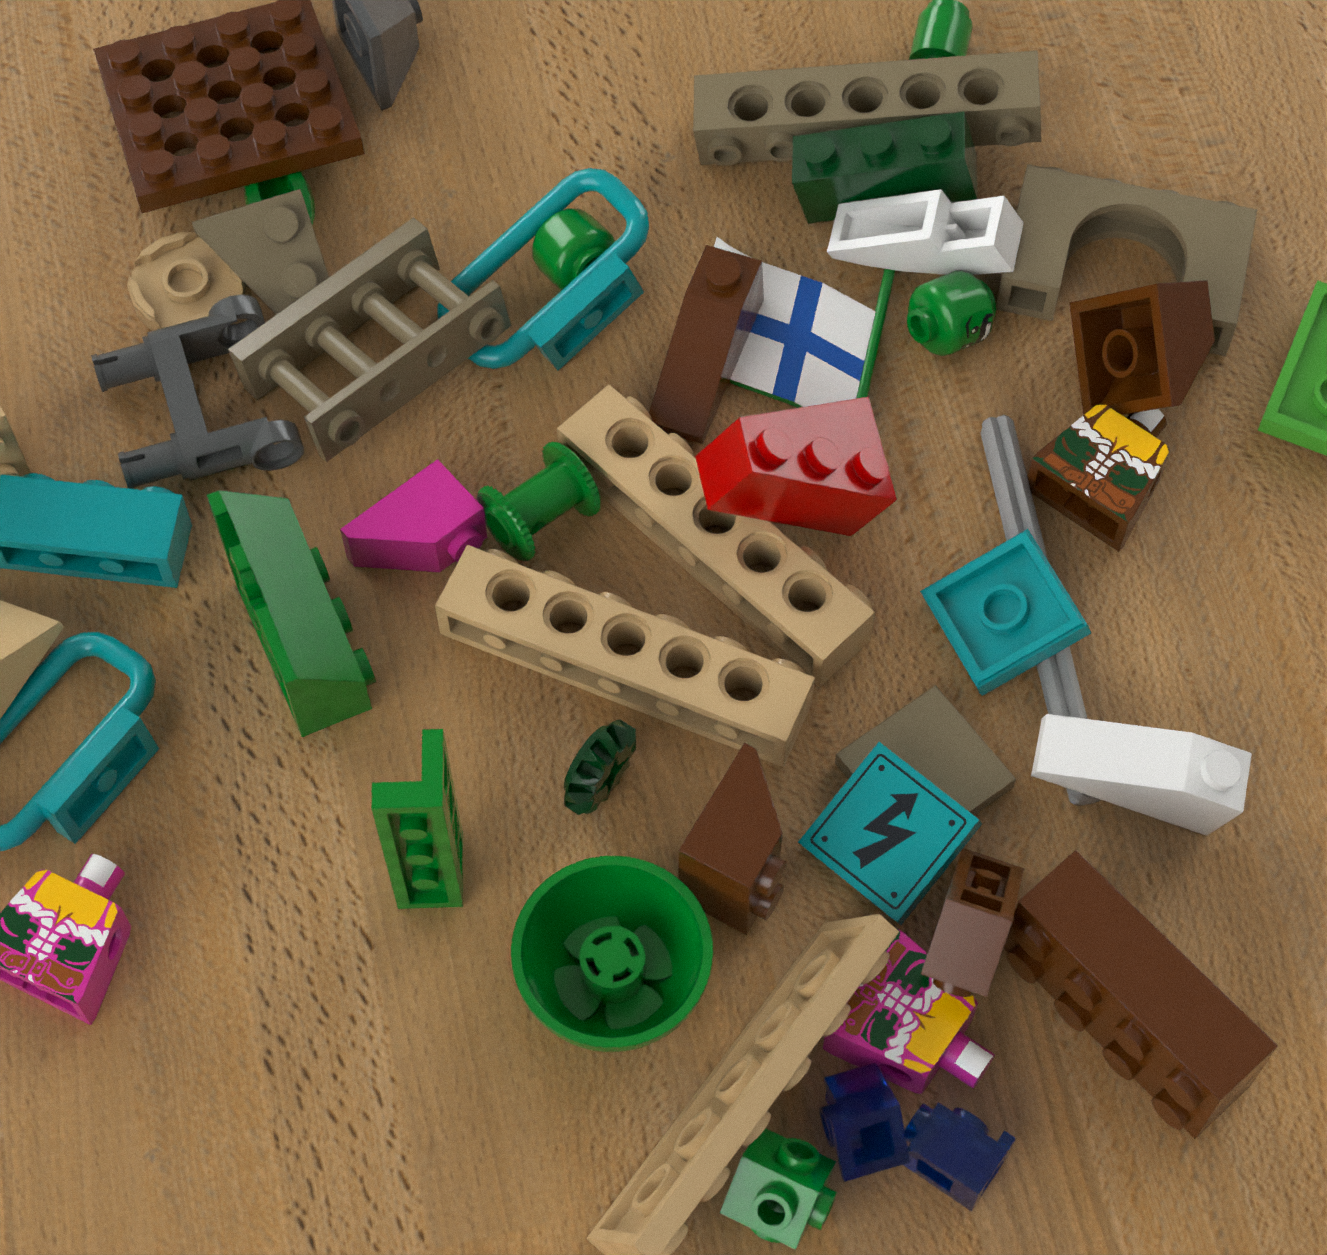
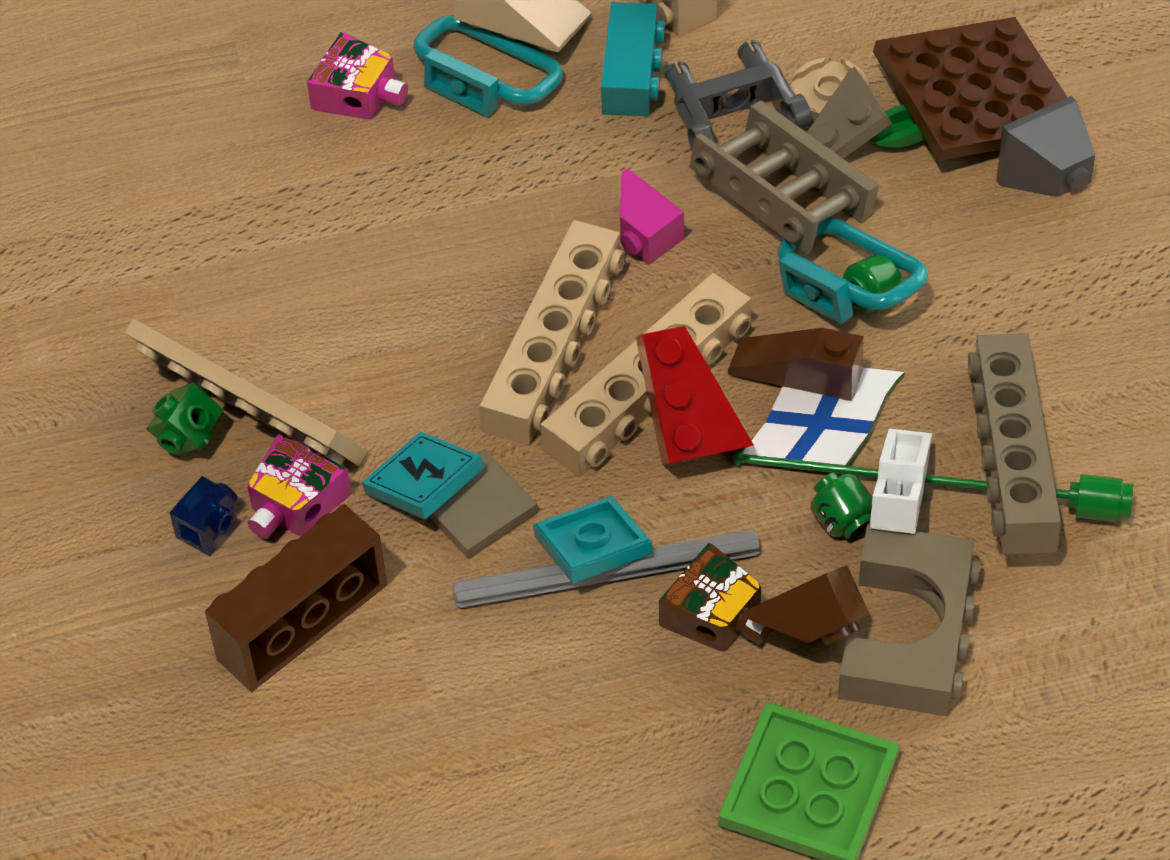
camera: 90 degrees right, 10 degrees down
(292, 609) = (563, 145): green wedge -> none
(422, 831) = (391, 212): green fence -> none
(539, 501) = (661, 273): green hose -> none
(599, 766) = (475, 322): dark green gear -> none
(622, 921) = (328, 319): green piece -> none
(736, 848) = (406, 382): reddish brown slope -> none
(863, 1122) = (222, 457): clear blue brick -> none
(884, 163) = (958, 451): dark green brick -> none
(973, 924) = (329, 480): reddish brown slope -> none
(1145, 769) = (465, 612): white slope -> none

